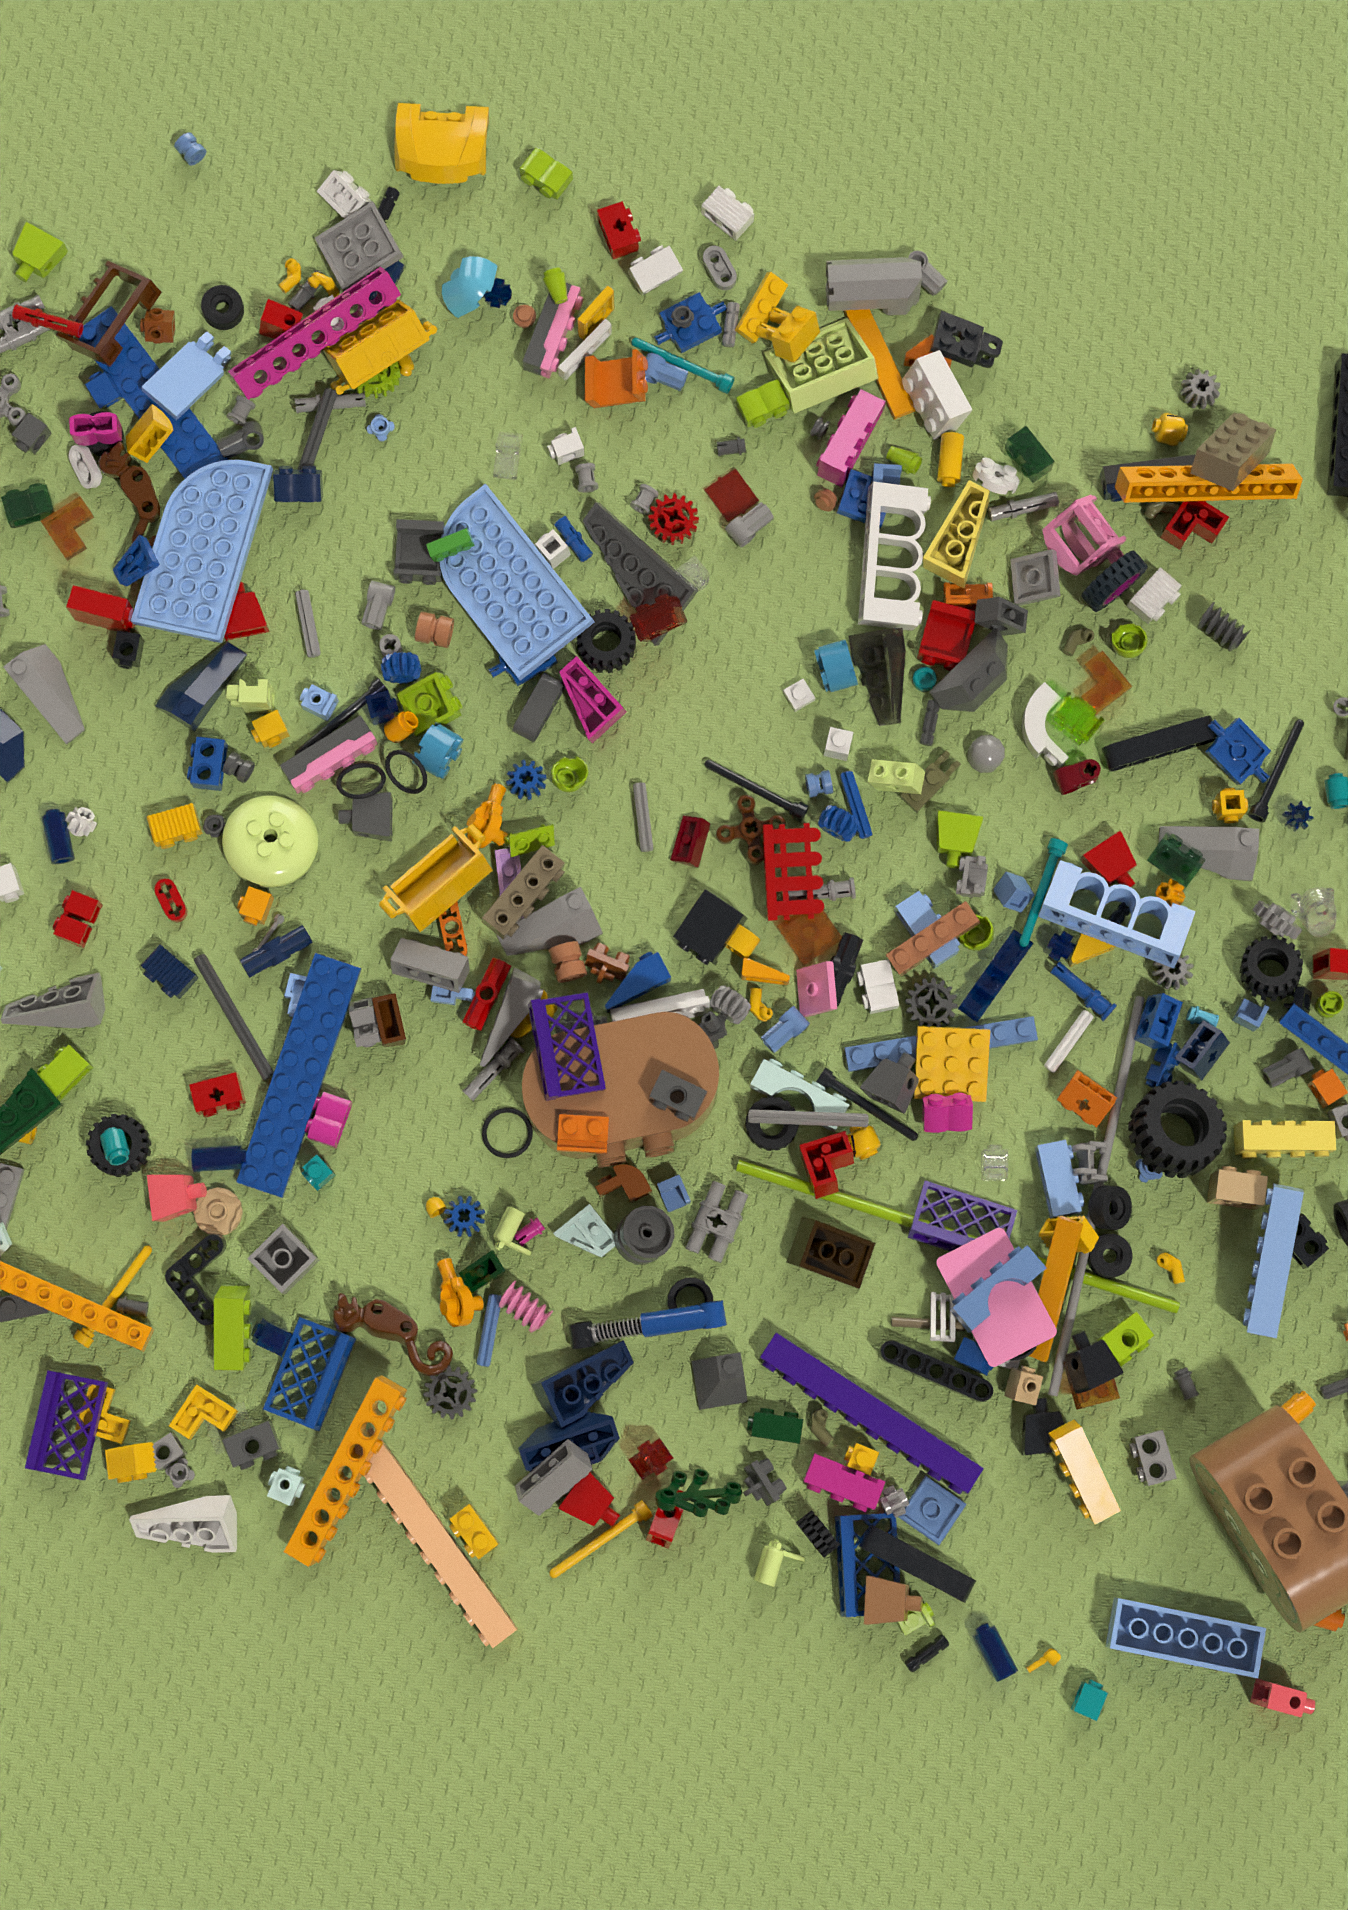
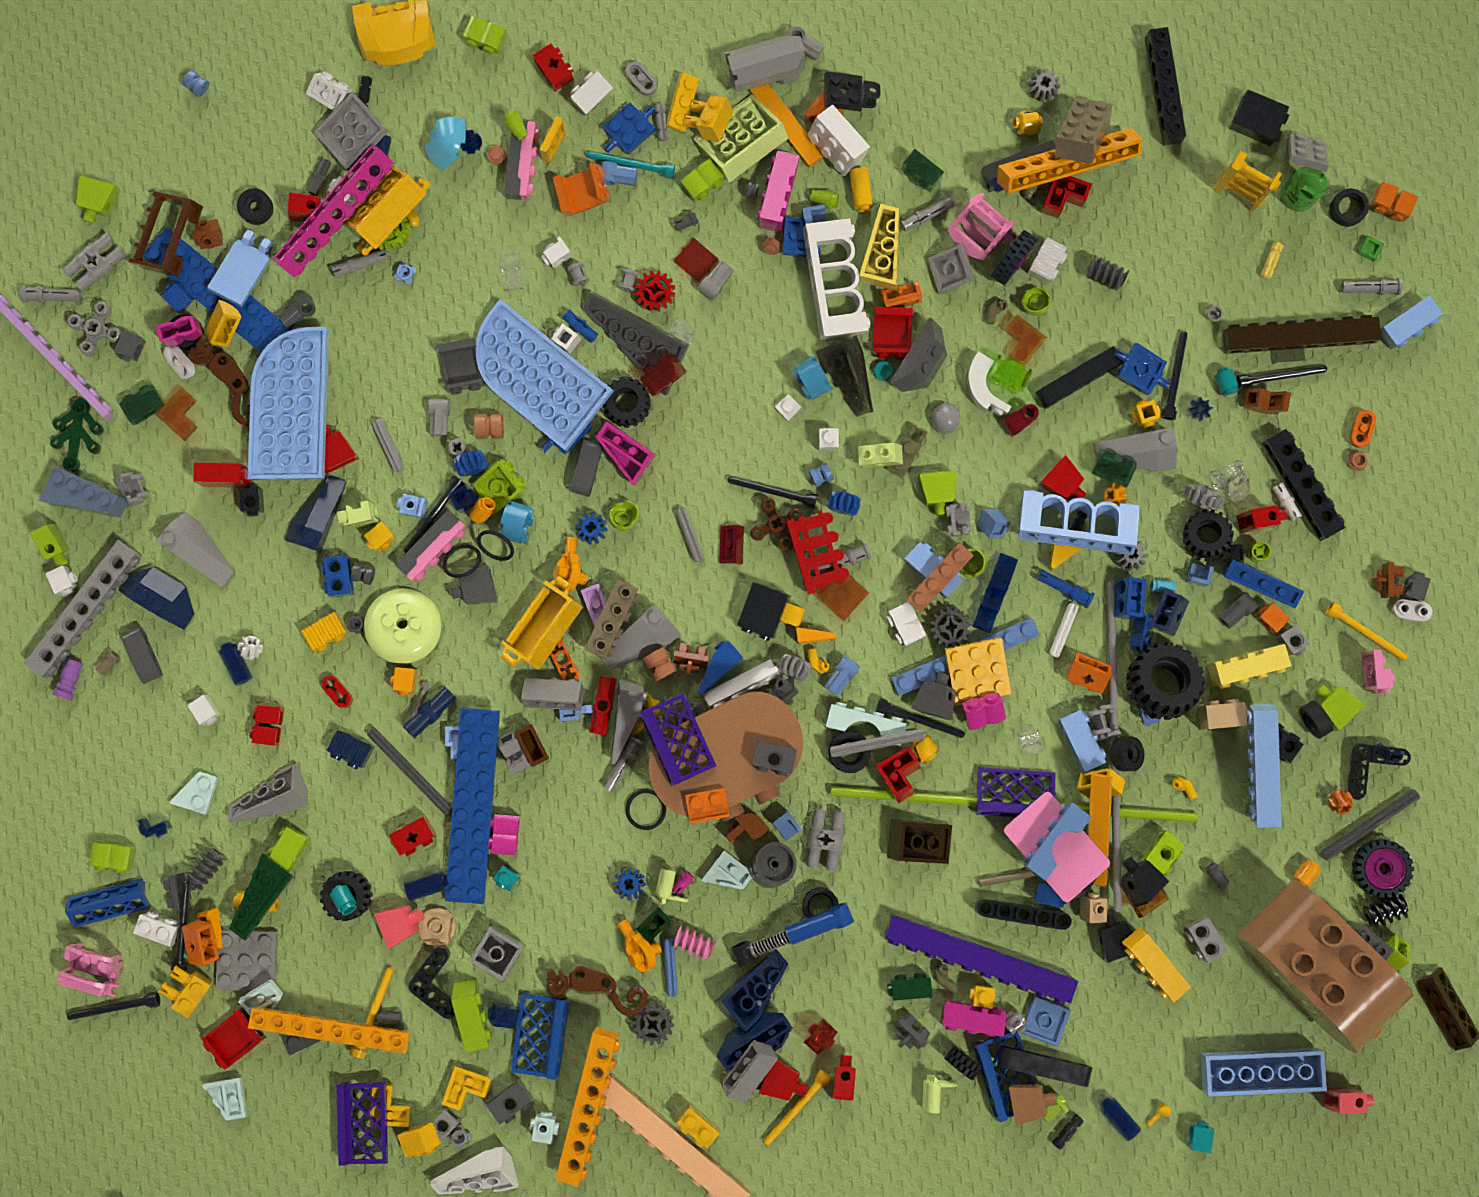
camera: 10 degrees left, 5 degrees up
(22, 313) = (96, 251): red pin -> none
(136, 562) = (239, 430): blue wing -> none
(241, 410) = (291, 286): light grey bush -> none
(293, 275) = (304, 165): yellow arm -> none
(298, 485) = (351, 336): dark blue brick -> none
(318, 428) = (356, 290): dark grey axle -> none
(325, 281) = (330, 165): yellow arm -> none
(435, 1207) = (604, 881): yellow hinge -> none
(450, 545) = (484, 355): bright green piece -> none
(530, 840) = (608, 575): lime hinge -> none
(585, 349) = (551, 171): white tile -> none
(669, 1497) = (842, 1067): dark green plant -> none
(678, 313) = (618, 123): dark grey plate -> none
(719, 1381) = (858, 962): dark grey slope -> none
(727, 212) = (636, 31): white brick -> none
(816, 989) = (859, 639): bright pink plate -> none
(844, 962) = (873, 617): black piece -> none
(855, 803) = (853, 483): blue axle -> none
(929, 723) = (895, 402): dark grey axle -> none
(942, 1337) = (1014, 854): white tile -> none
(996, 477) = (901, 195): white plate -> none
(1001, 614) = (931, 306): dark grey brick -> none
(1056, 850) = (1018, 482): teal piece -> none
(1060, 946) = (1040, 557): clear blue gear -> none
(1123, 1256) = (1146, 791): black tyre -> none

